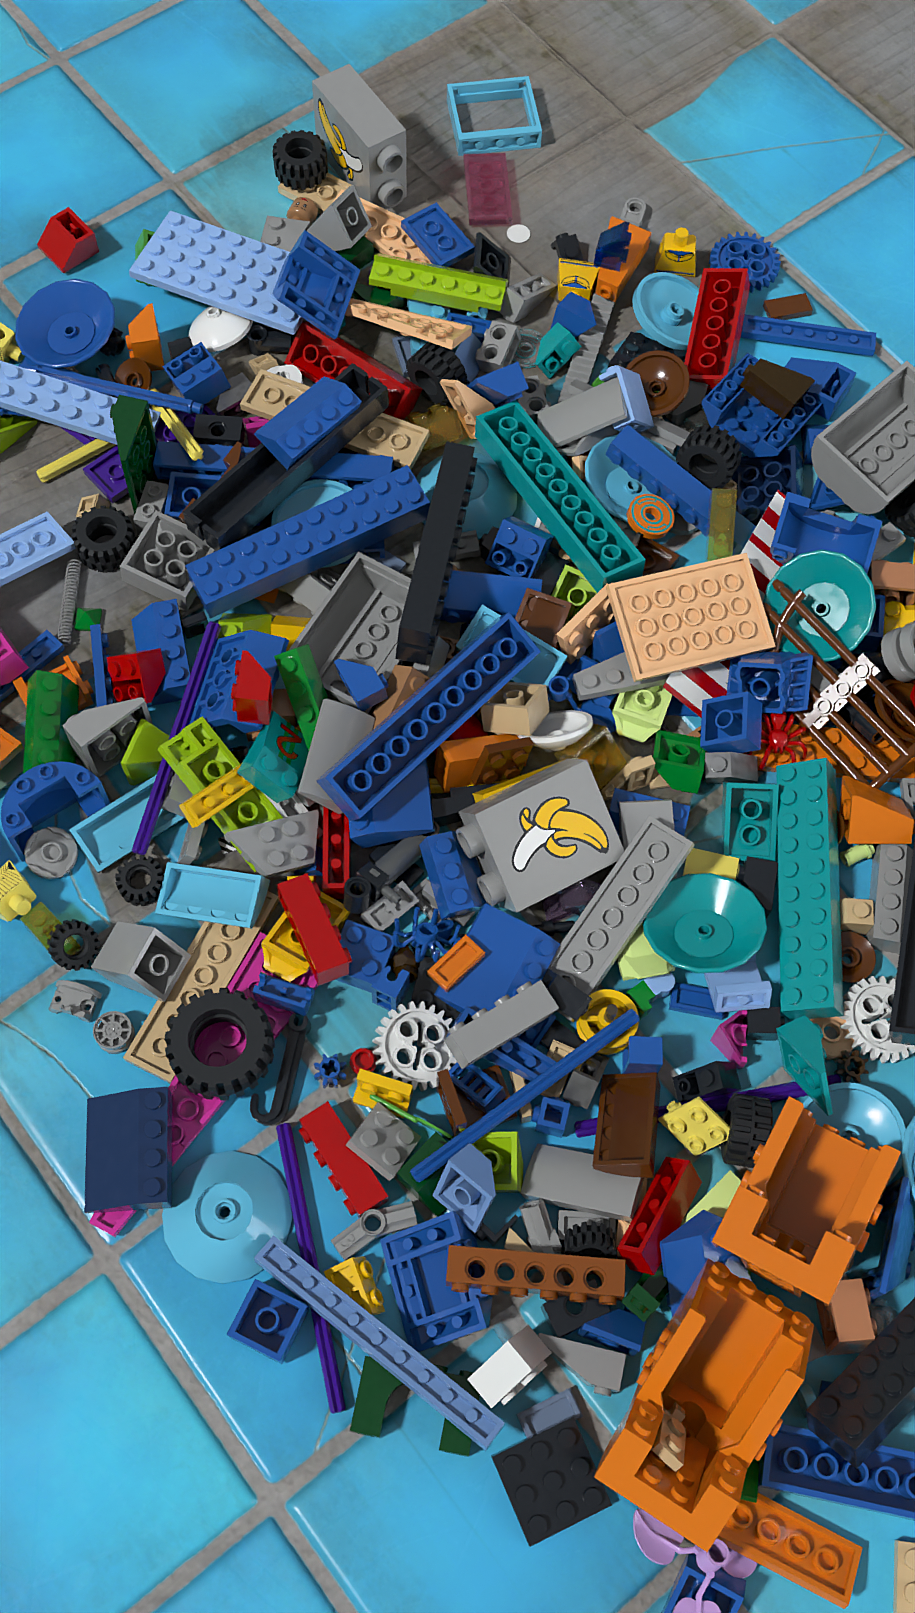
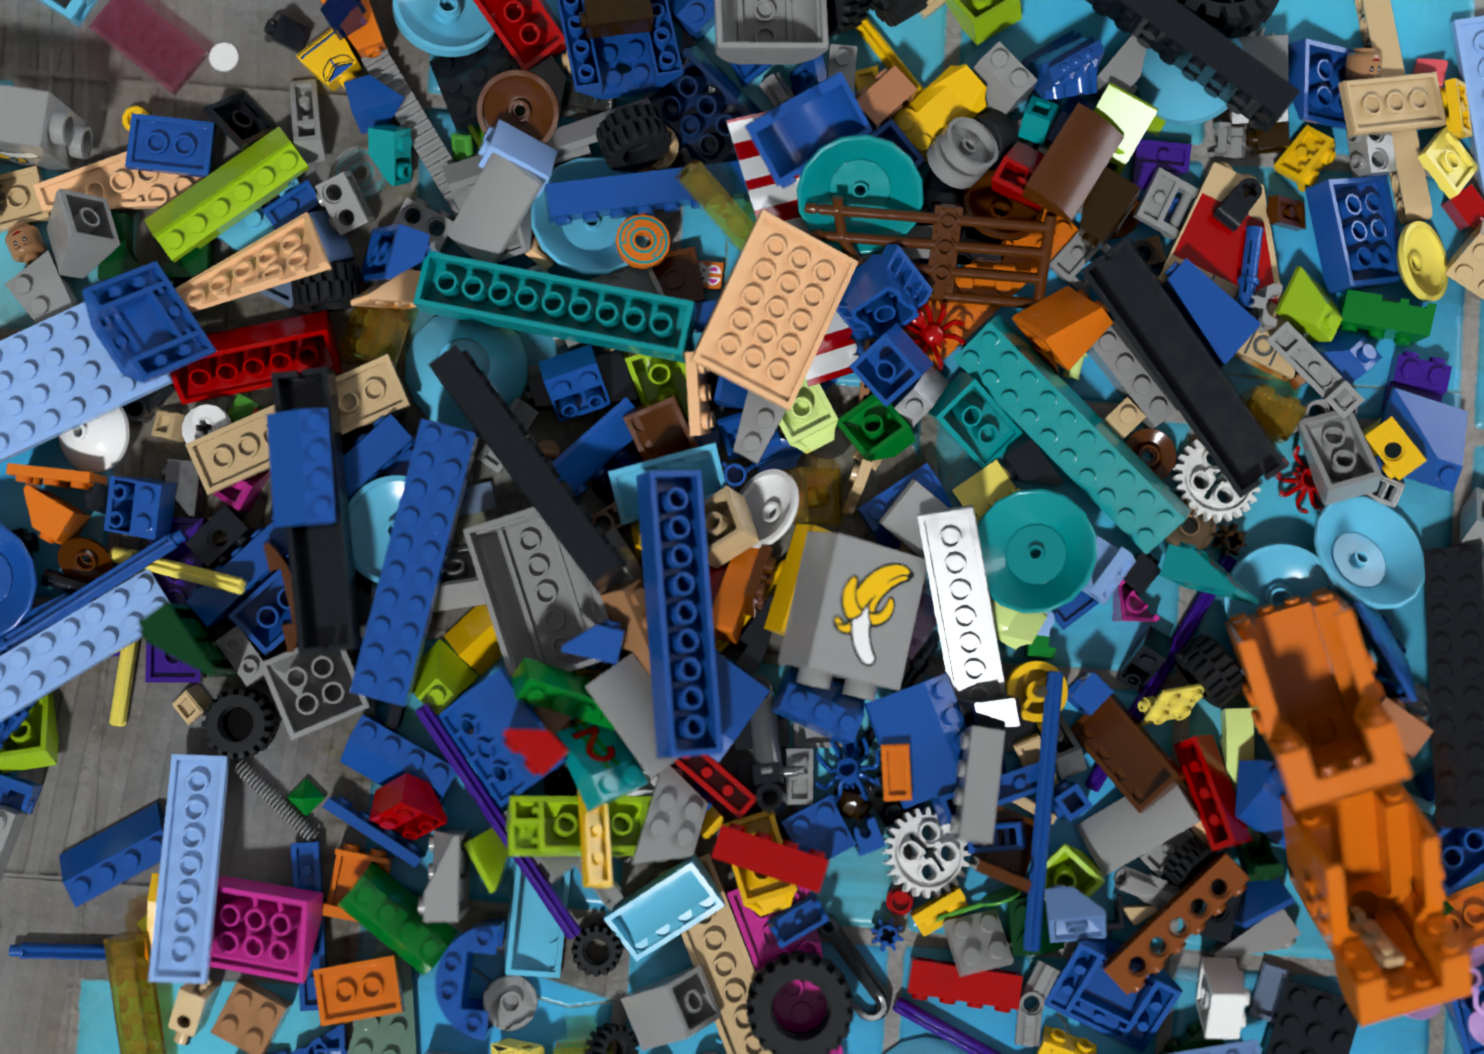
camera: 45 degrees left, 20 degrees up
(169, 317) = (54, 477): none -> orange plate

